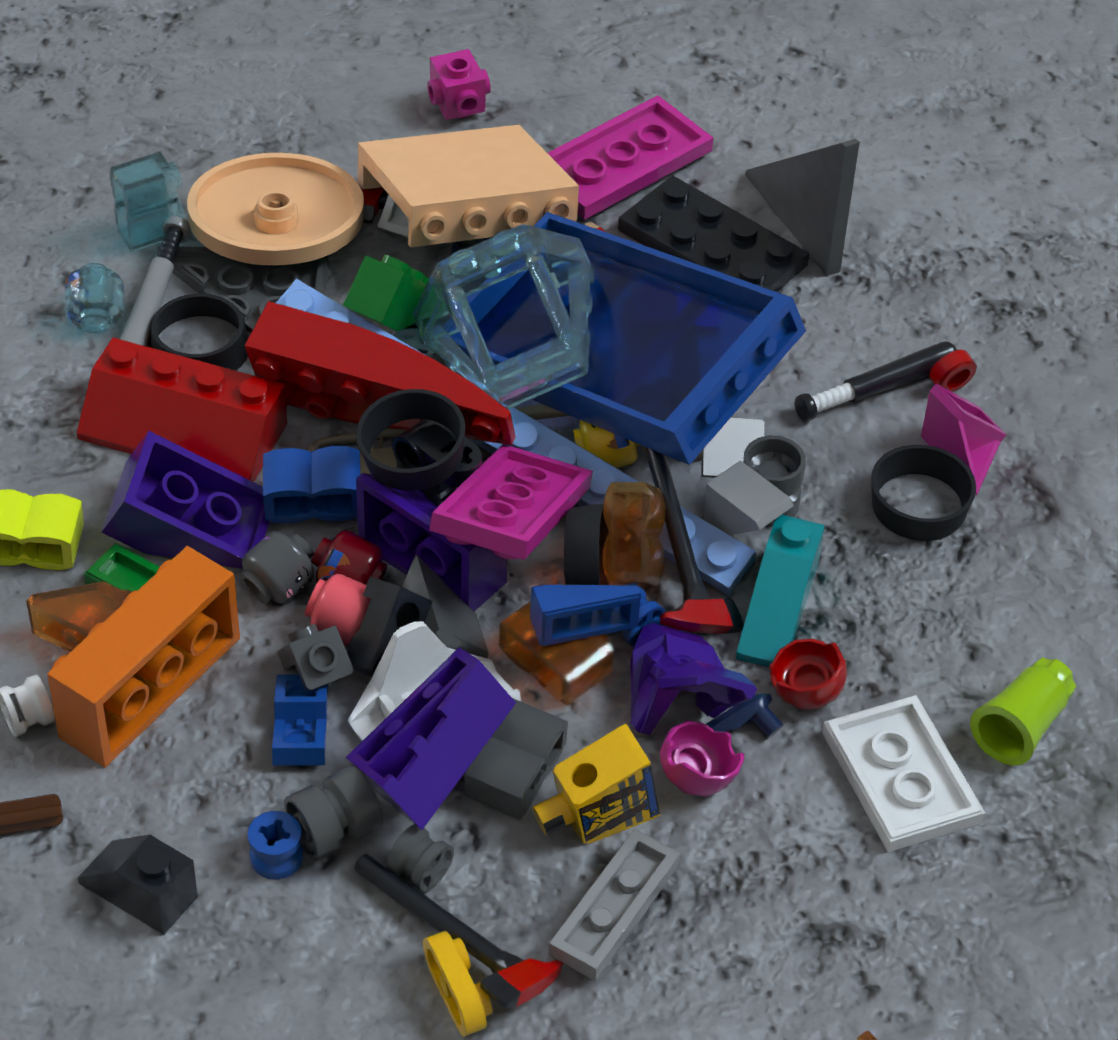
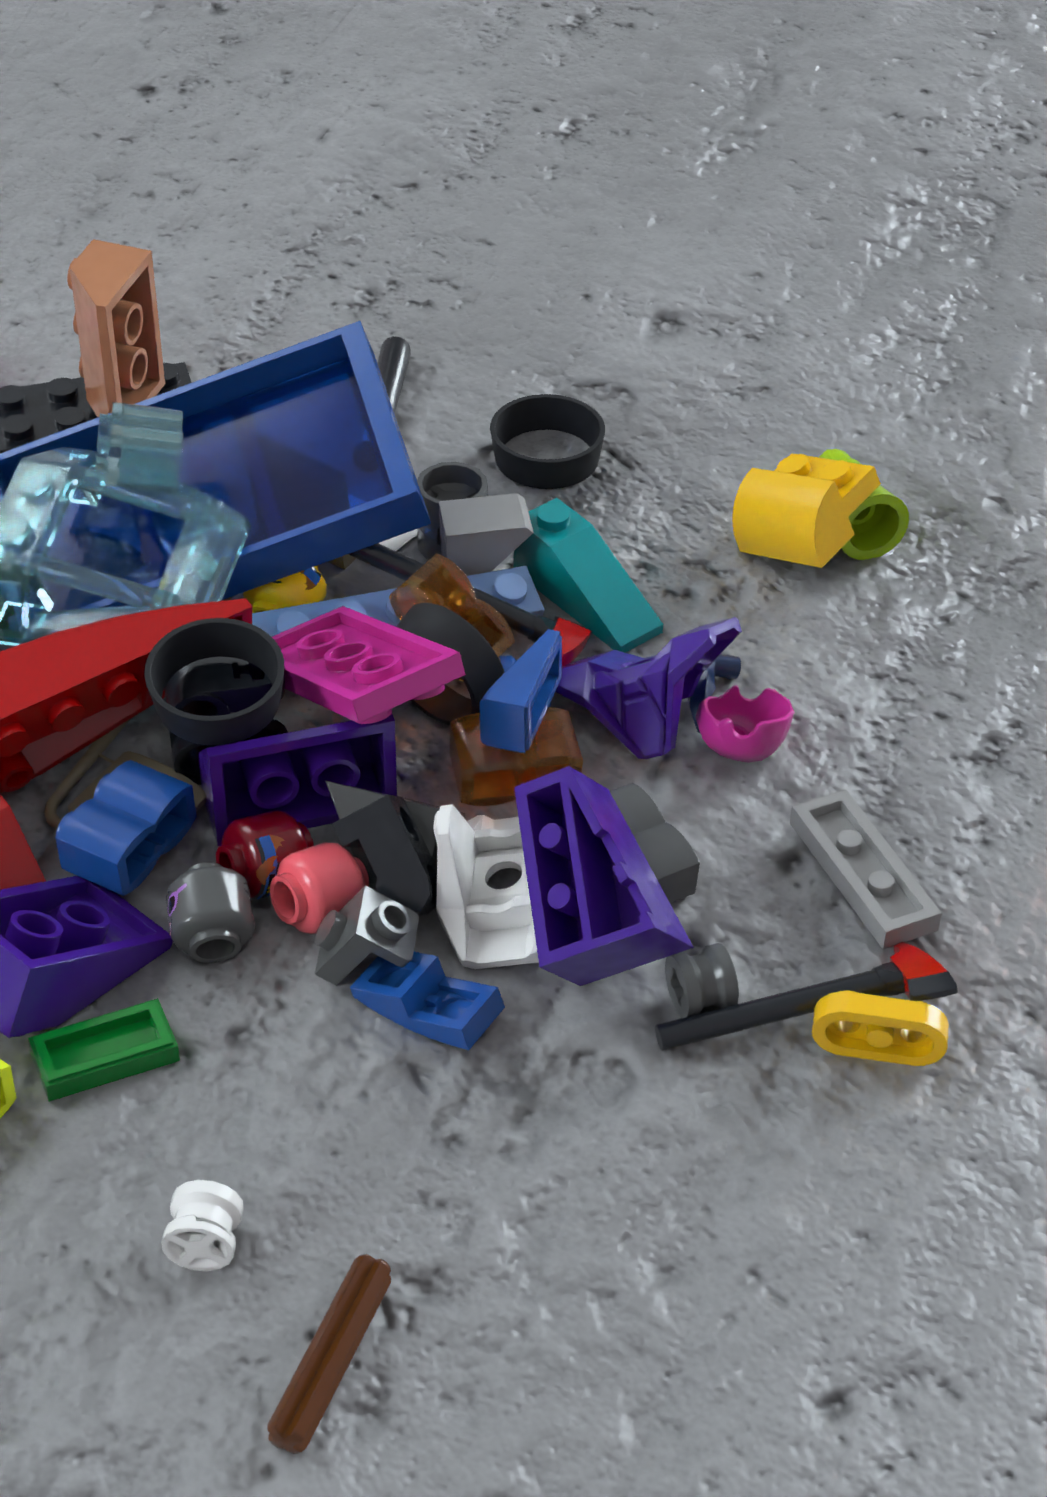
camera: 55 degrees left, 5 degrees down
(70, 613) = (133, 1109): clear orange slope -> none
(143, 880) = (544, 1228): black slope -> none
(144, 655) = (251, 1071): orange brick -> none
(287, 852) = (588, 1092): blue wheel -> none
(338, 810) = (593, 1018): dark grey wheel -> none
(577, 272) = (140, 447): none -> clear light blue brick
(601, 789) = (732, 814): yellow torso -> none
(730, 196) = (116, 324): none -> nougat slope
(808, 673) = (700, 599): red hair -> none
(813, 198) = (181, 296): dark grey tile -> none
(902, 773) = (848, 615): white tile -> none
(953, 370) = (426, 353): red tile -> none
(961, 430) = (494, 380): dark pink slope -> none
(968, 673) = (800, 508): none -> yellow brick

